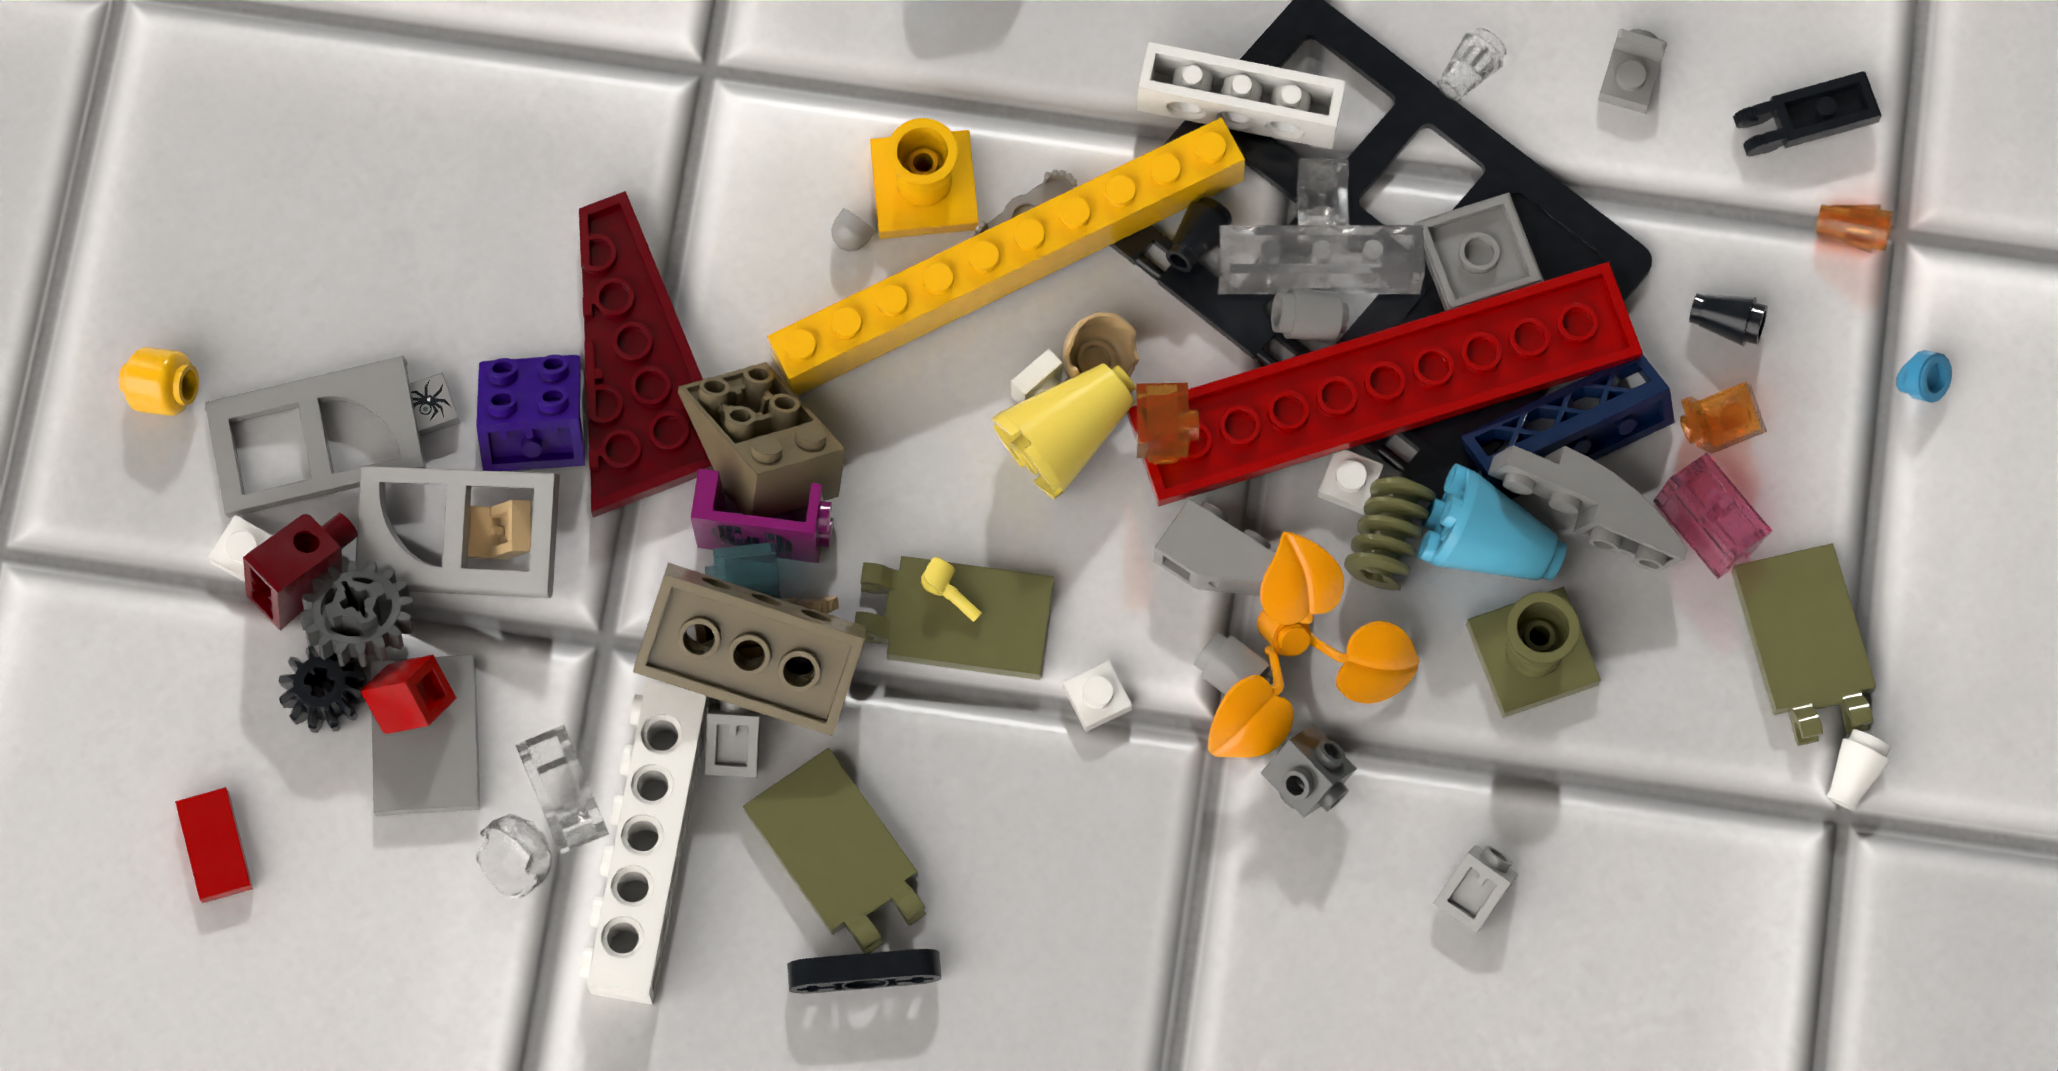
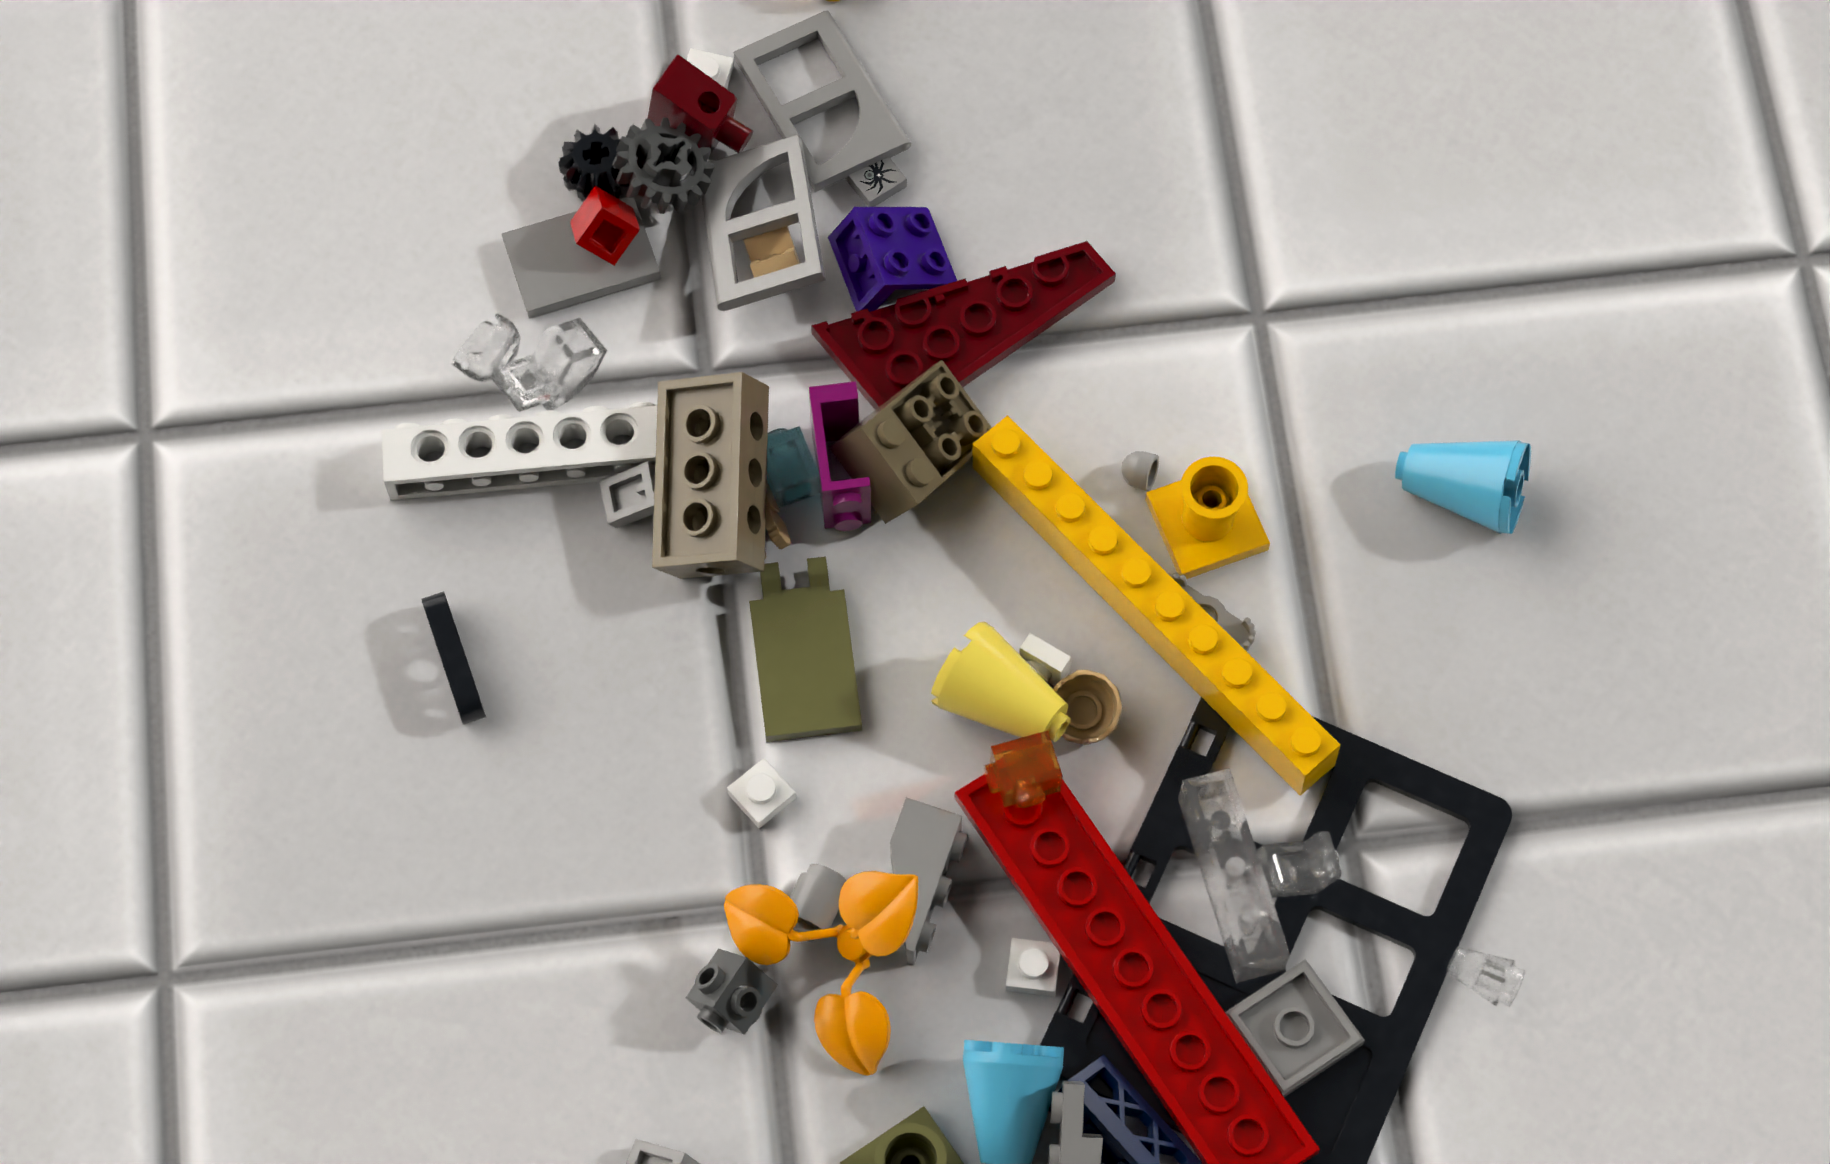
camera: 75 degrees right, 5 degrees down
(214, 845) = (445, 125): red tile -> none
(836, 849) = (560, 609): olive tile -> none
(936, 581) = (826, 620): light yellow hand -> none
(1197, 233) = (1244, 763): black cone -> none
(1242, 92) = (1375, 763): white brick -> none
(1309, 315) = (1180, 885): light grey brick -> none
(1385, 531) = (988, 1009): olive piece -> none
(1632, 69) = (1535, 1133): light grey bracket -> none

